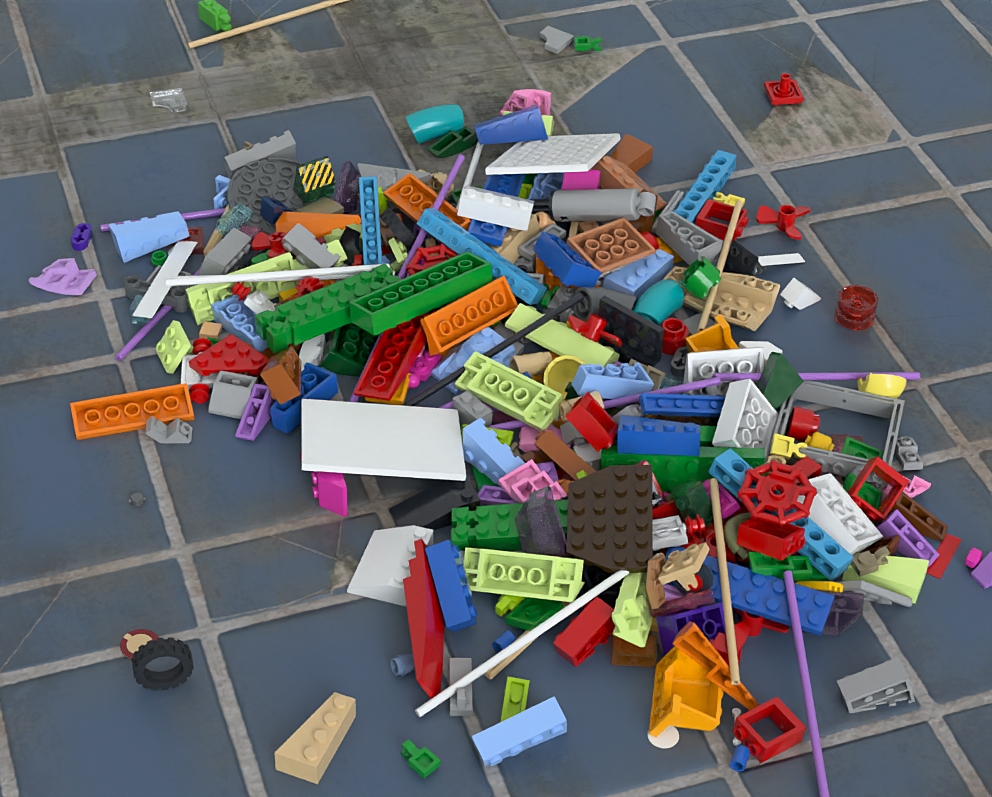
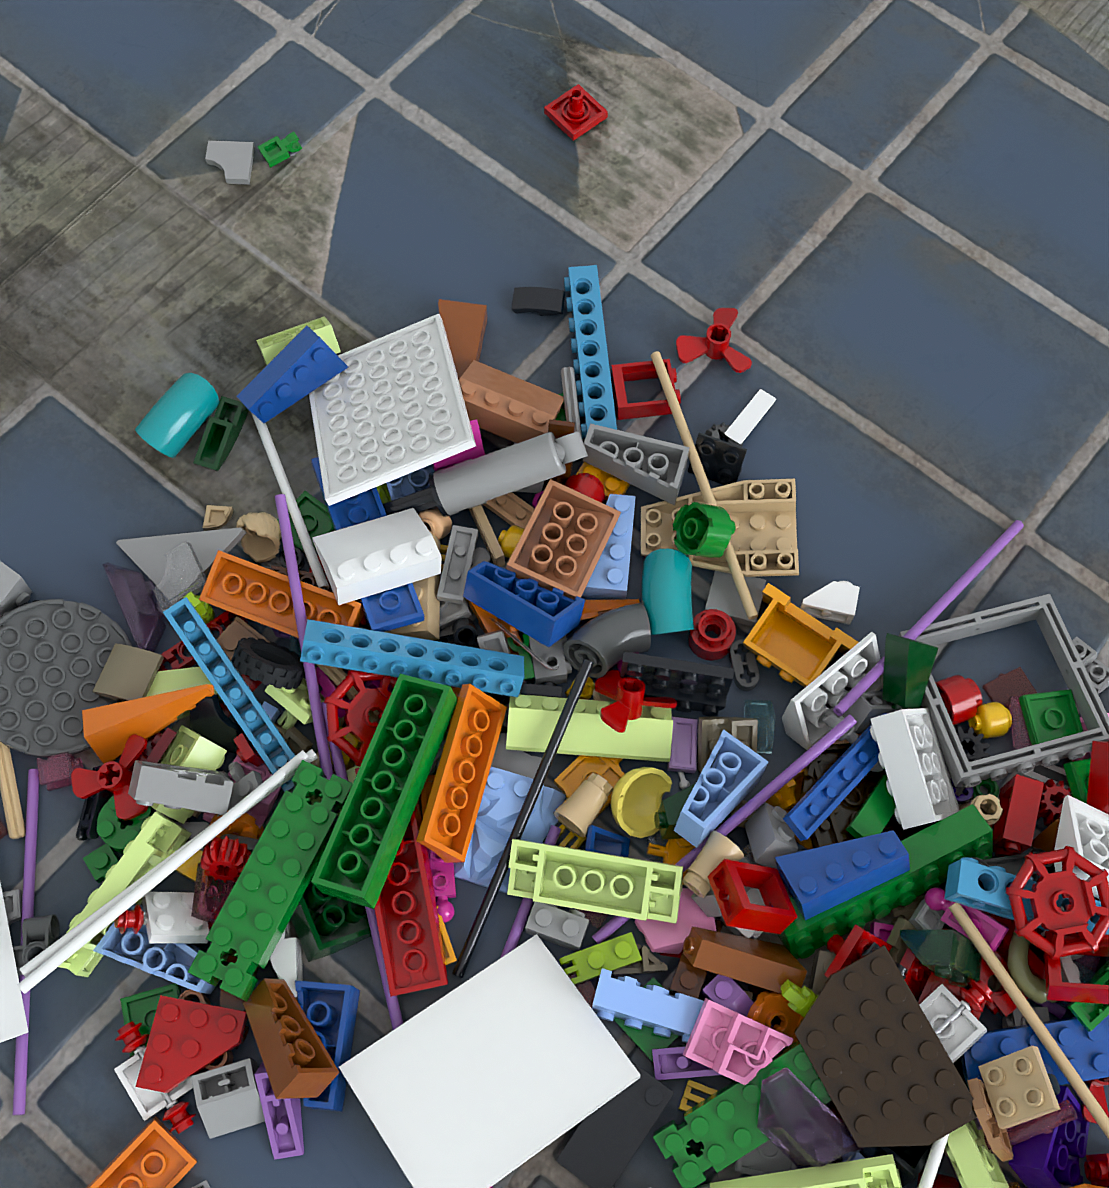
camera: 30 degrees left, 25 degrees up
(173, 347) = (91, 1059): yellowish green plate -> none
(210, 330) = (115, 981): light nougat tile -> none
(223, 224) = (6, 782): clear light blue slope -> none
(226, 254) = (53, 843): light grey wedge -> none
(272, 209) = (66, 711): dark blue slope -> none
(314, 180) = (92, 632): slope -> none
(525, 98) = (279, 311): bright pink slope -> none
(691, 161) = (538, 299): none -> black slope
(730, 199) = (634, 348): light yellow plate -> none
(785, 447) = (987, 776): light yellow plate -> none
(799, 295) = (813, 469): white slope -> none
(856, 307) = (893, 455): clear red wheel -> none
(883, 385) = (1006, 582): light yellow cylinder -> none

